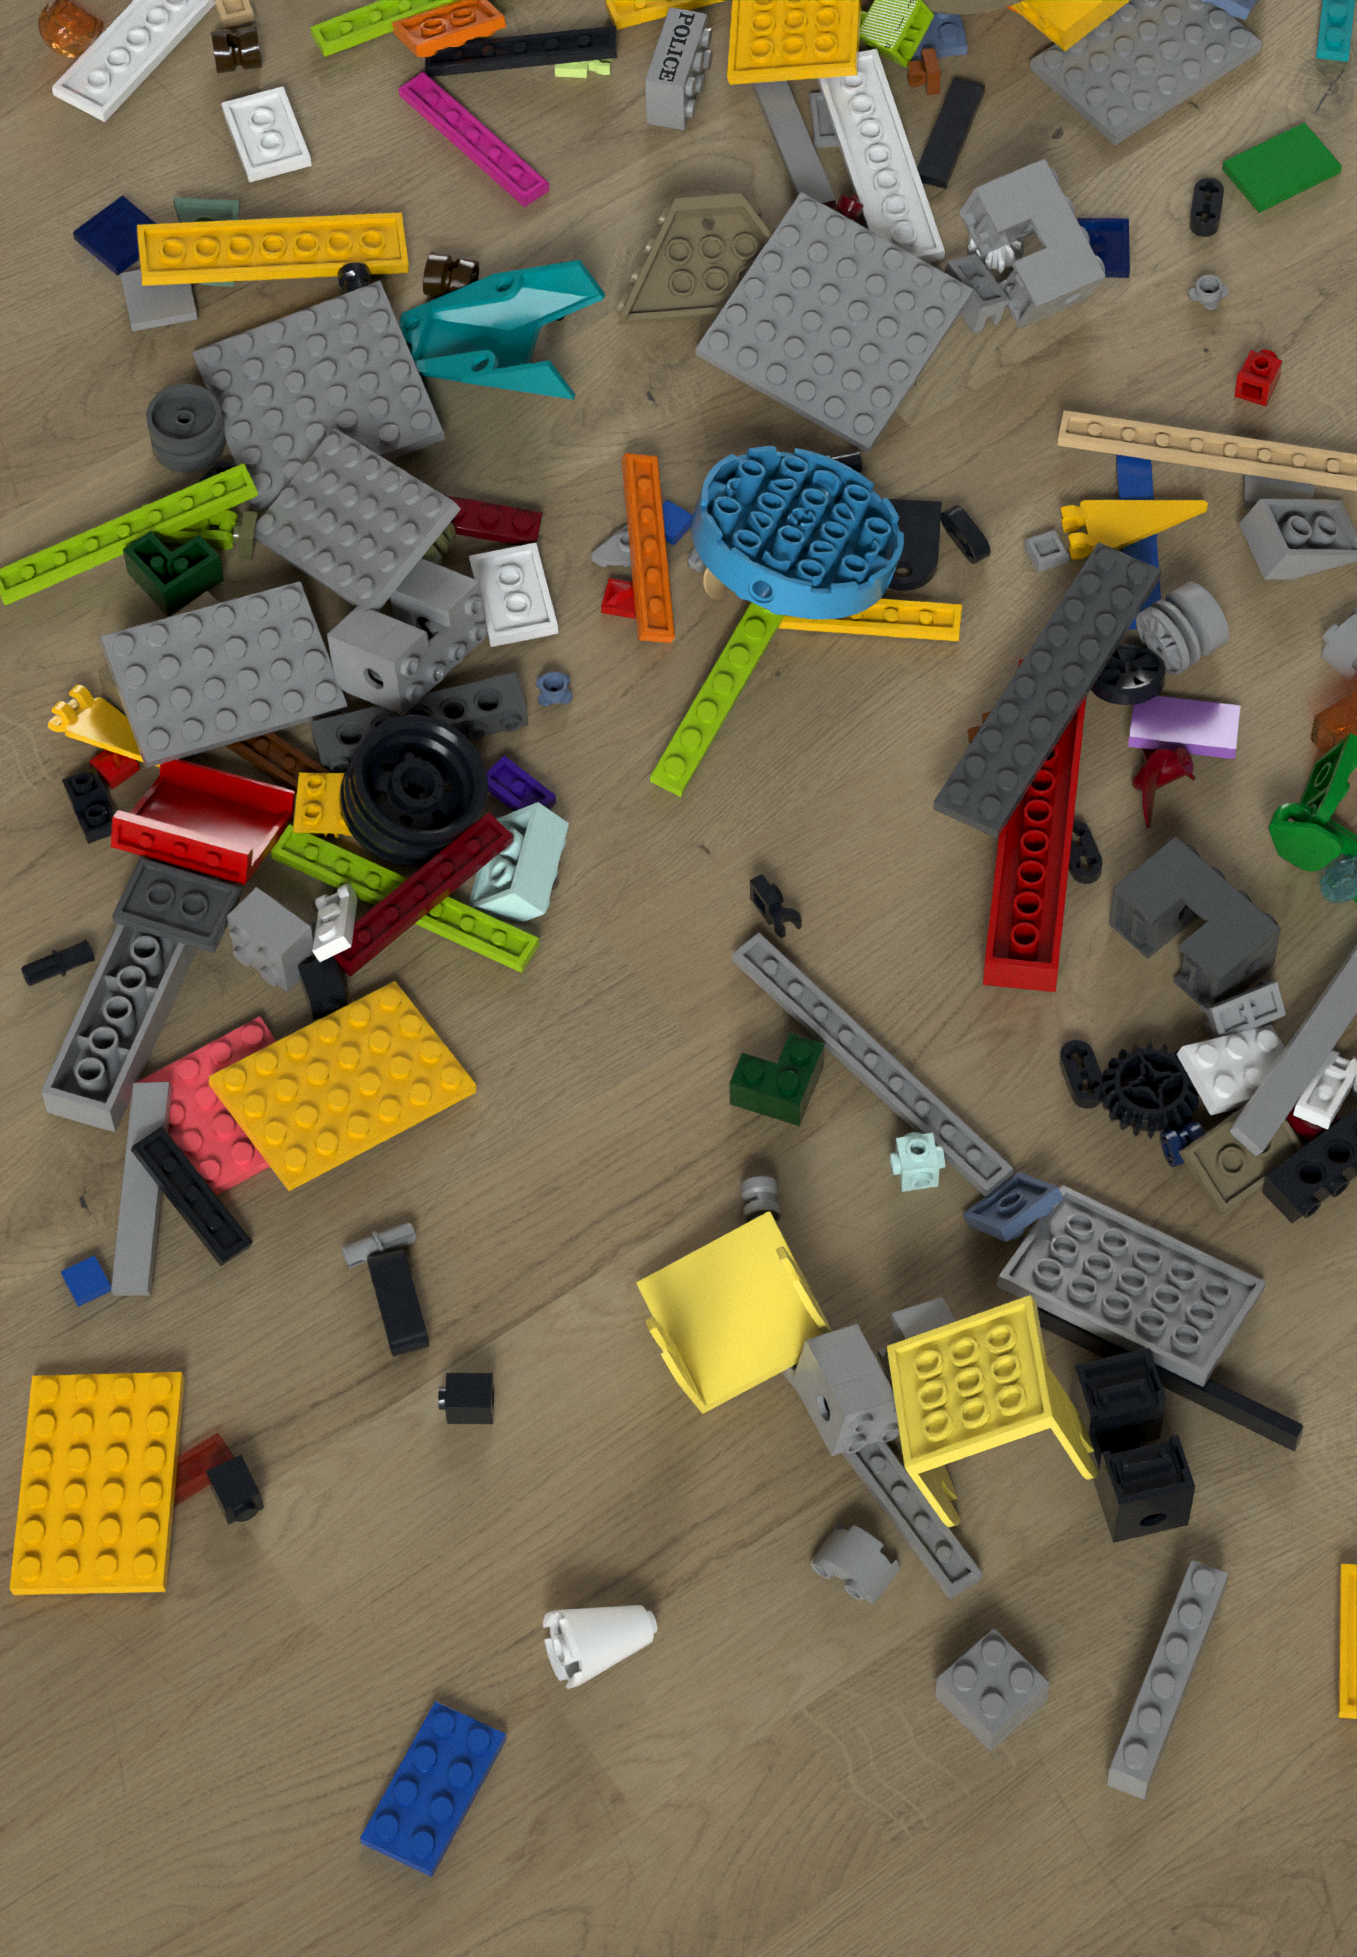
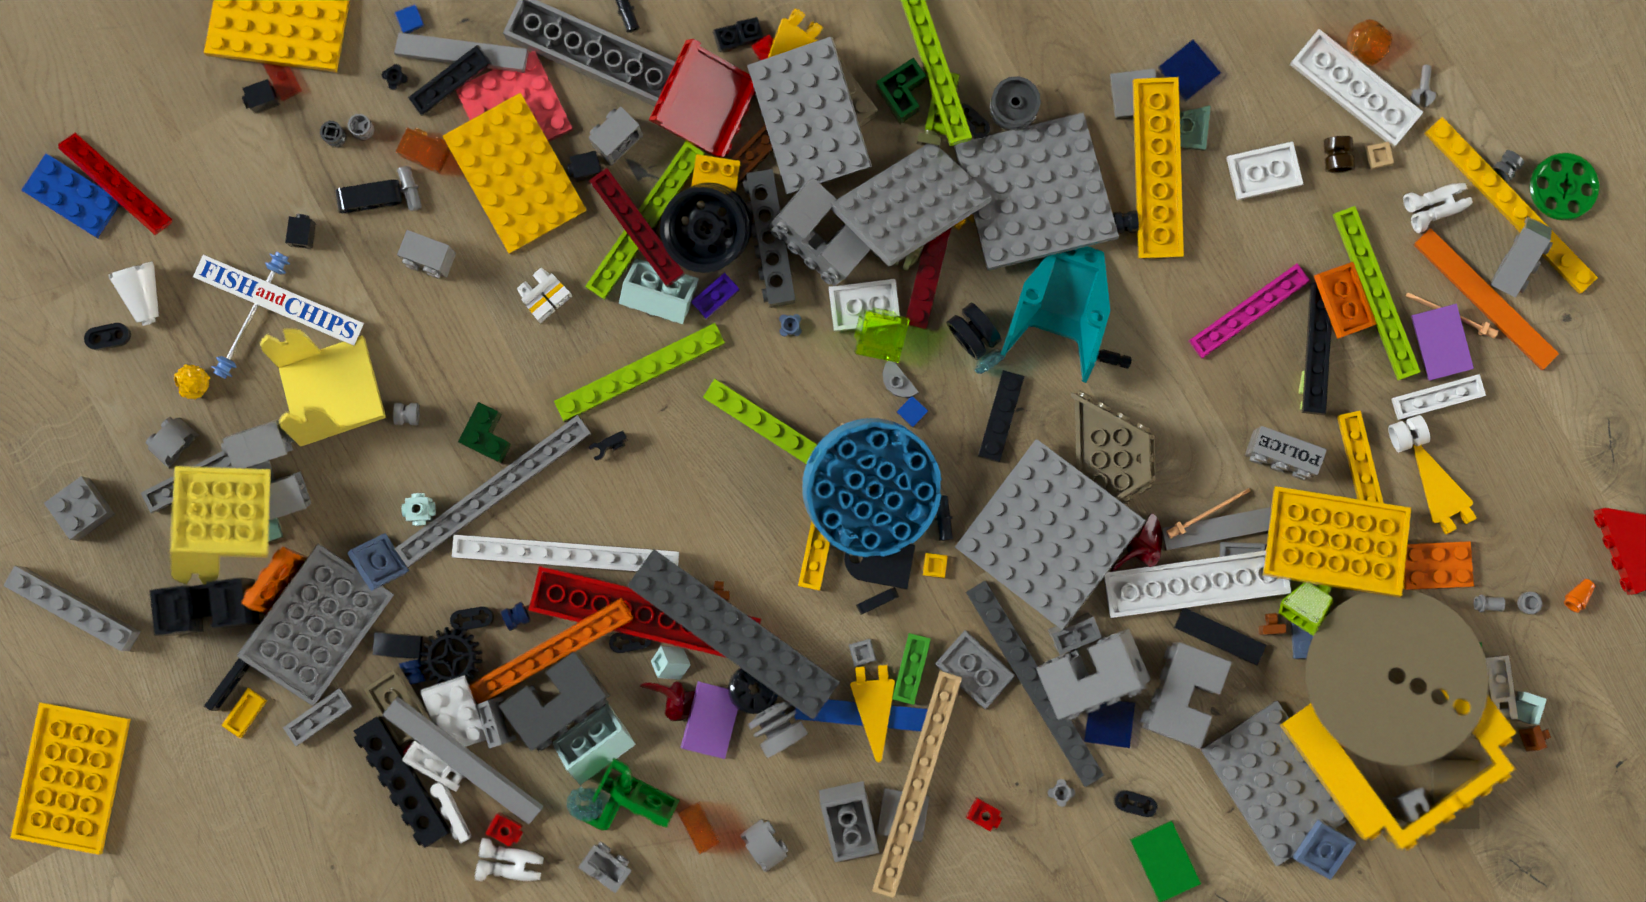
camera: 95 degrees right, 25 degrees up
(177, 905) = (639, 78): dark grey tile -> none
(186, 1281) = (390, 72): none -> black plate
(277, 1318) = (361, 127): none -> light grey wheel
(292, 1376) = (335, 138): none -> dark grey wheel
(312, 1227) = (423, 150): none -> clear orange brick
(335, 922) = (622, 174): white plate -> none
(406, 1713) = (115, 183): none -> red tile
(445, 275) = (1124, 277): dark brown wheel -> none
(492, 1190) = (426, 254): none -> light grey brick
(533, 1429) = (225, 364): none -> medium blue axle
(541, 441) = (974, 331): none -> black wheel
(543, 1021) = (534, 297): none -> white hips
(560, 554) = (881, 334): none -> clear neon green panel
(583, 424) = (988, 361): none -> clear light blue gear
(589, 1418) = (278, 300): none -> white sticker
(619, 599) = (856, 374): red tile -> none
(647, 548) = (888, 393): orange tile -> none
(652, 886) = (639, 372): none -> lime plate
(663, 413) = (1001, 416): none -> black plate
(682, 1691) = (108, 336): none -> black plate
(746, 1534) = (191, 381): none -> yellow piece
(801, 181) = (1179, 528): none -> light nougat sword
(900, 474) = (935, 565): none -> yellow tile
(959, 964) = (553, 553): none -> white plate
(1009, 141) = (1182, 672): none -> light grey piece
(1036, 412) = (980, 671): none -> light grey tile
(1053, 339) = (1026, 672): none -> dark grey plate
(1058, 483) = (911, 669): none -> bright green plate
(1068, 1007) = (515, 616): none -> dark blue wheel
(1072, 1334) = (273, 579): none -> orange plate
(1105, 790) = (670, 662): none -> light aqua panel
(1114, 933) = (550, 651): none -> orange tile
(1144, 1171) = (397, 645): none -> black slope
(1258, 869) = (593, 744): none -> light aqua slope
(1282, 1275) = (318, 717): none -> light grey plate
(1296, 1393) = (244, 712): none -> yellow tile

